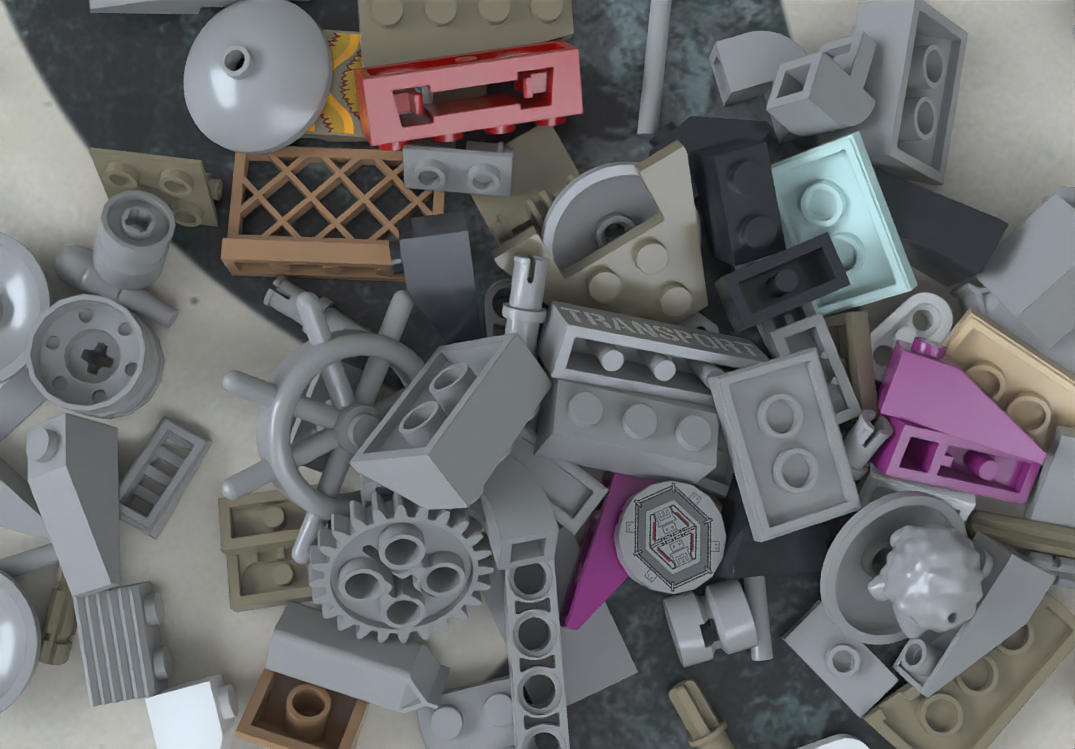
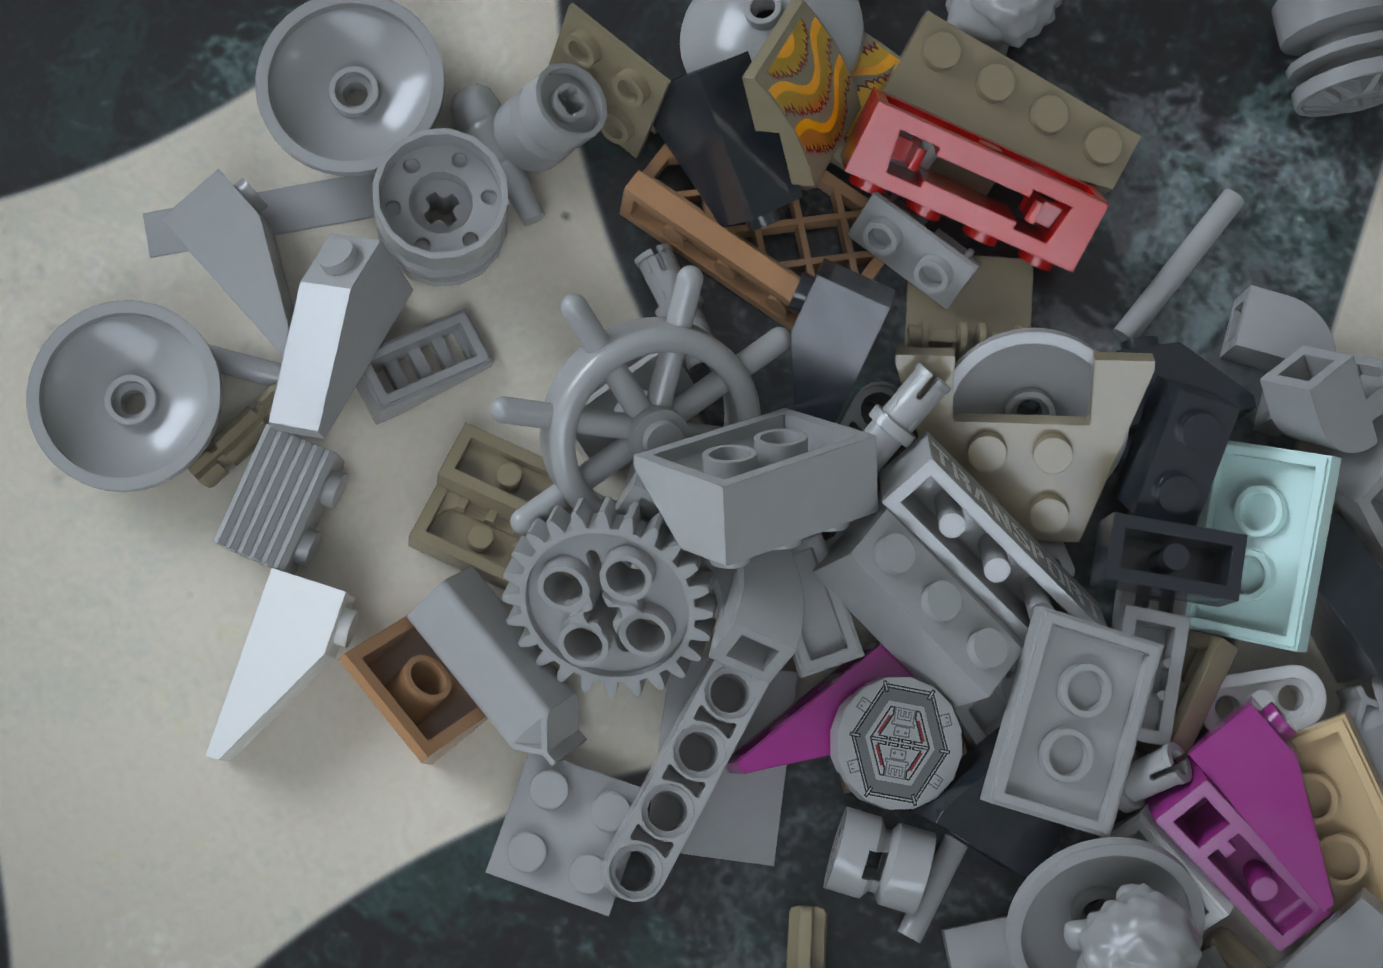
camera: 30 degrees right, 5 degrees down
(274, 177) = (716, 144): none -> black slope
(302, 107) = (802, 92): none -> slope

